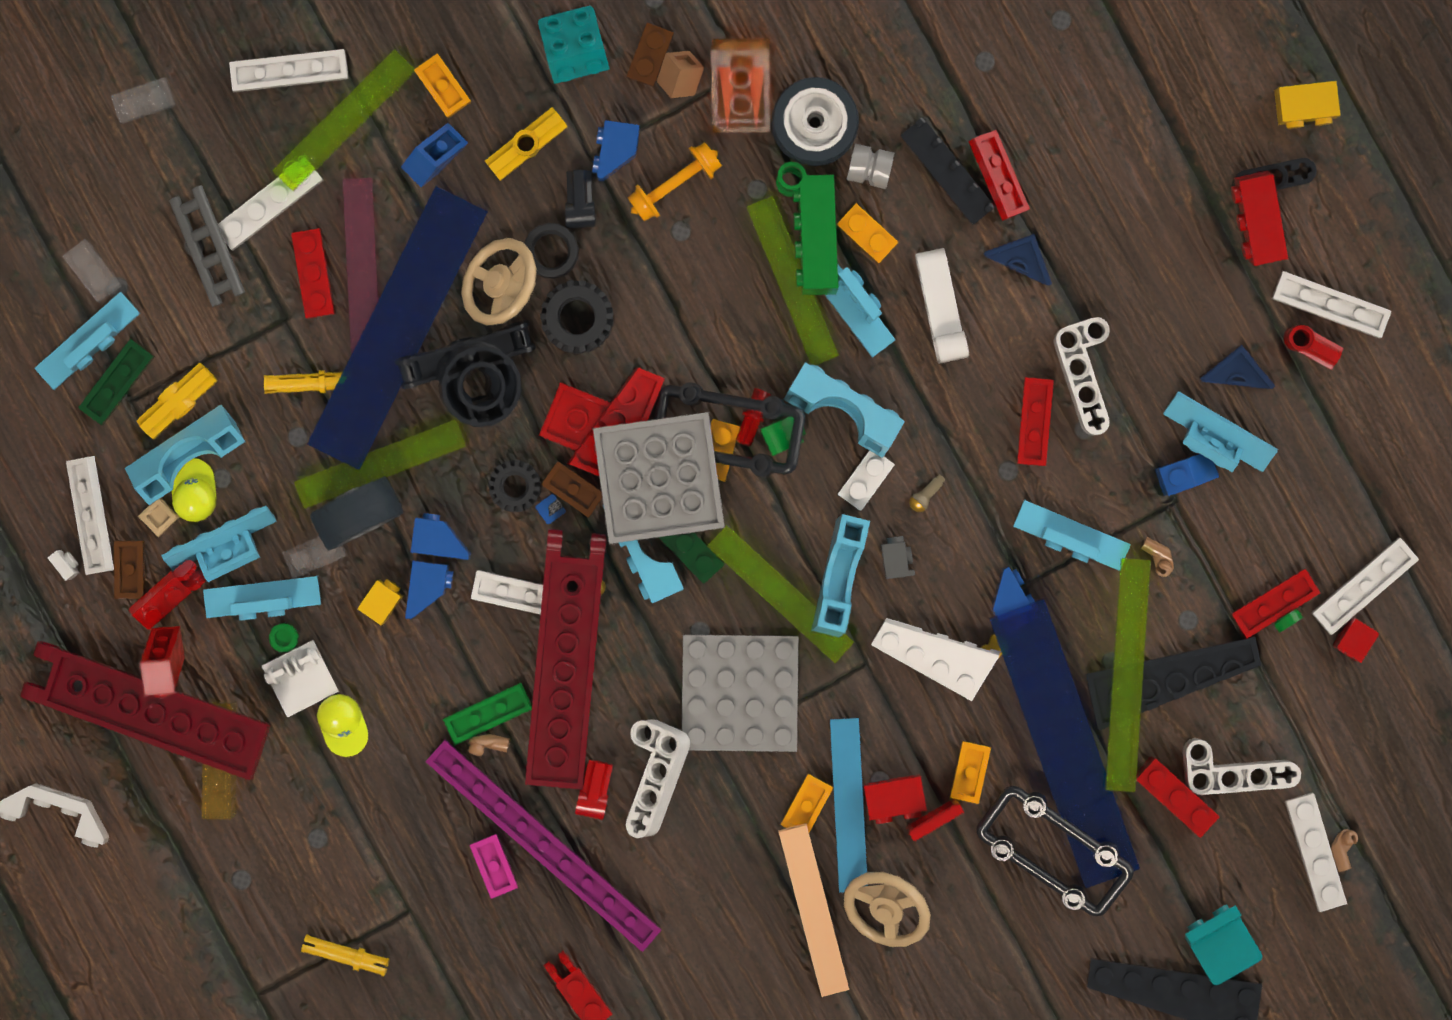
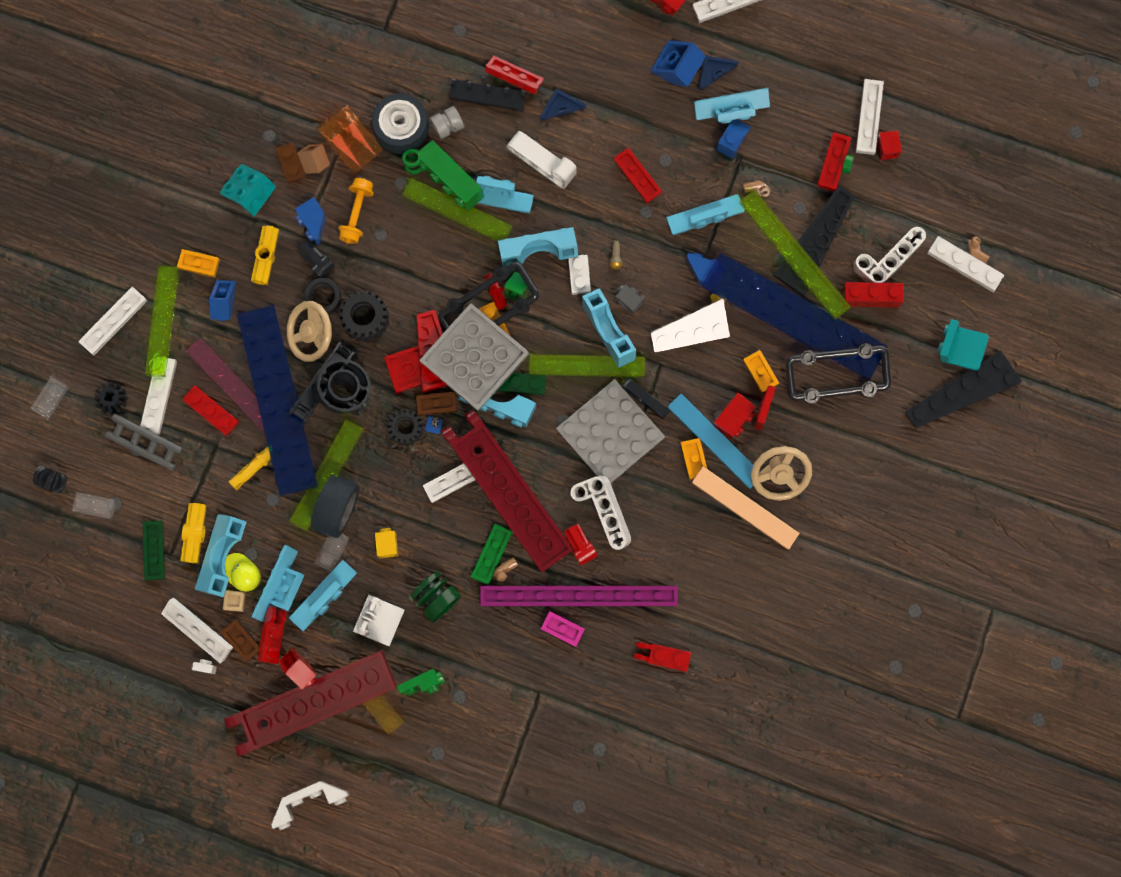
camera: 40 degrees left, 10 degrees down
(66, 200) = (50, 479): none -> black gear
(91, 337) = (121, 541): medium azure bracket -> none
(207, 154) = (104, 398): none -> black gear
(283, 637) = (352, 607): green tile -> none
(293, 797) = (428, 682): none -> green plate
(342, 725) = (419, 627): neon yellow cap -> none
(357, 958) = (522, 745): yellow pin -> none
(382, 710) = (434, 596): none -> dark green wheel
(426, 585) = (404, 515): blue slope -> none
(437, 538) = (389, 487): blue slope -> none
(812, 688) = (644, 398): none -> black beam
(867, 233) = (474, 157): light orange plate -> none
(1087, 378) = (645, 133): white beam -> none
(1202, 327) = (678, 62): none -> blue slope
(1315, 346) = (740, 26): red piece -> none

